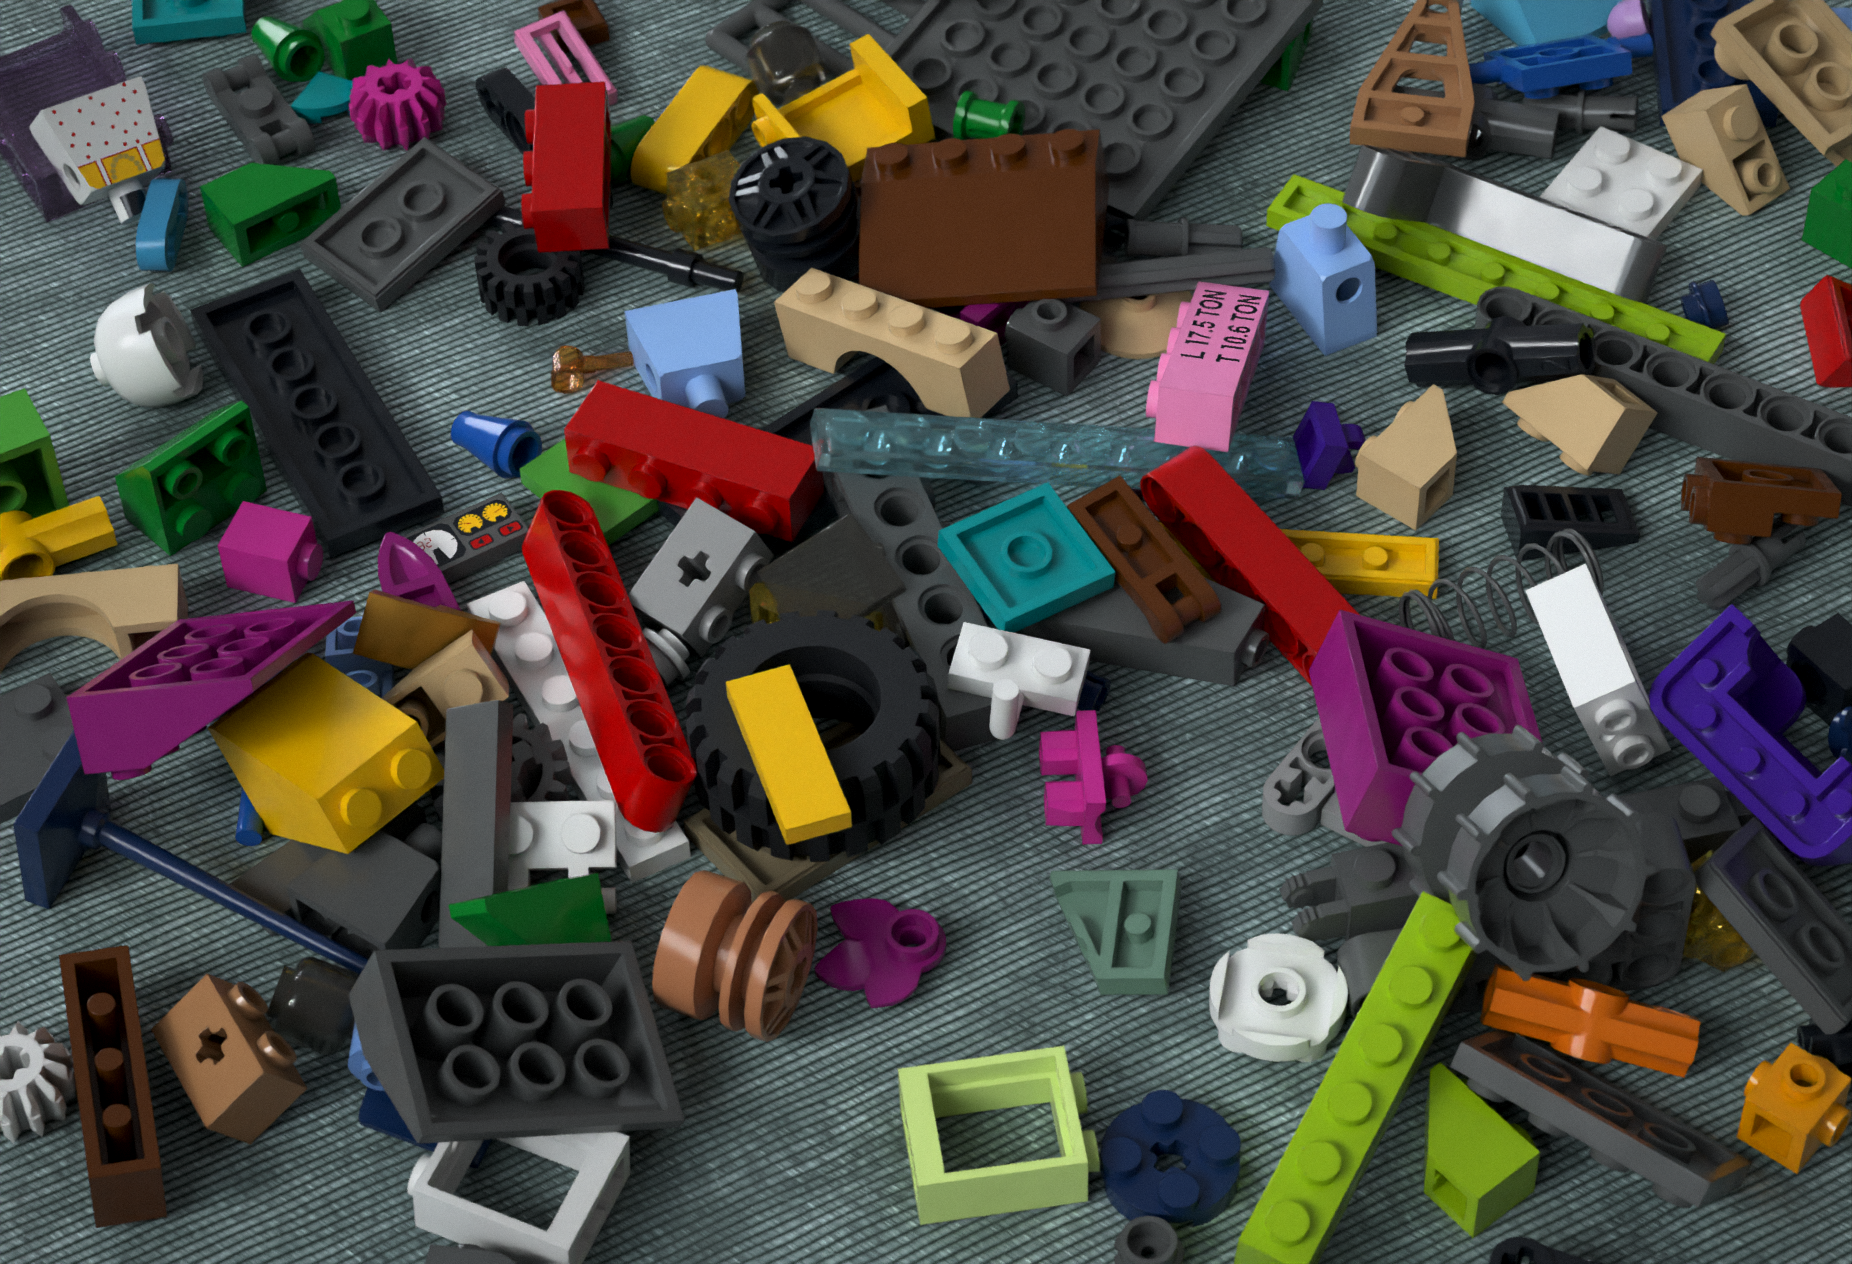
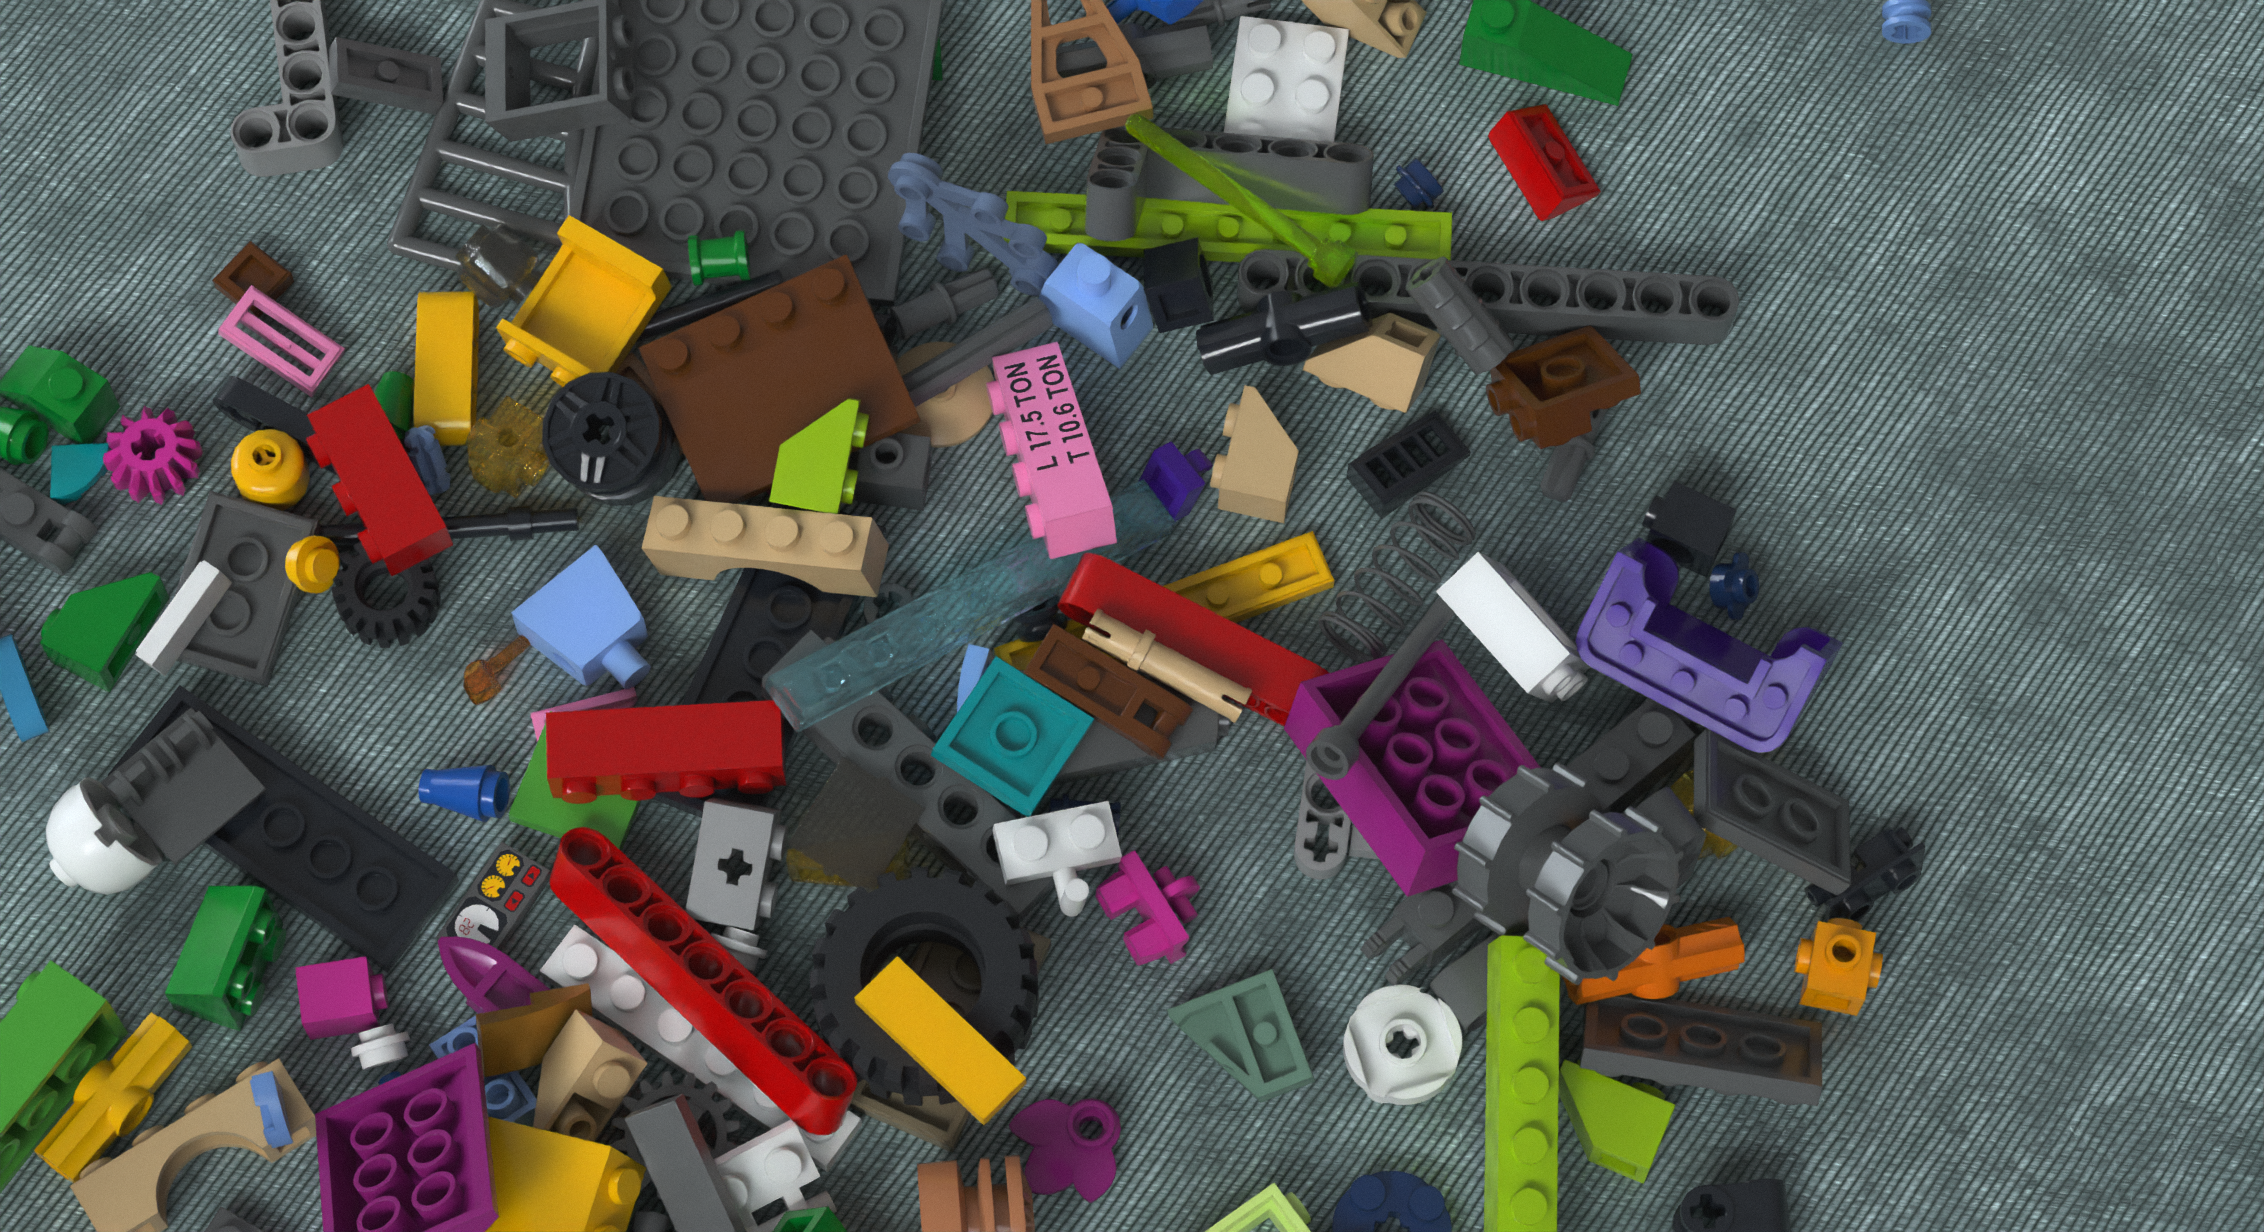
camera: 30 degrees left, 20 degrees up
(144, 587) = (269, 1096): none -> medium blue tile
(245, 331) = (183, 785): none -> dark grey hinge
(278, 594) = (381, 1046): none -> white plate
(334, 212) = (183, 617): none -> white tile
(475, 215) = (313, 564): none -> yellow plate
(489, 141) = (270, 469): none -> yellow head
(631, 186) = (427, 459): none -> light blue piece
(981, 274) = (815, 461): none -> lime slope
(1214, 558) = (1166, 665): none -> tan pin
(1235, 157) = (920, 184): none -> sand blue plant
(1338, 656) = (1336, 747): none -> dark grey piece
(1415, 291) = (1178, 285): none -> black brick
(1568, 301) = (1327, 259): none -> clear neon green piece
(1682, 395) = (1460, 315): none -> dark grey axle

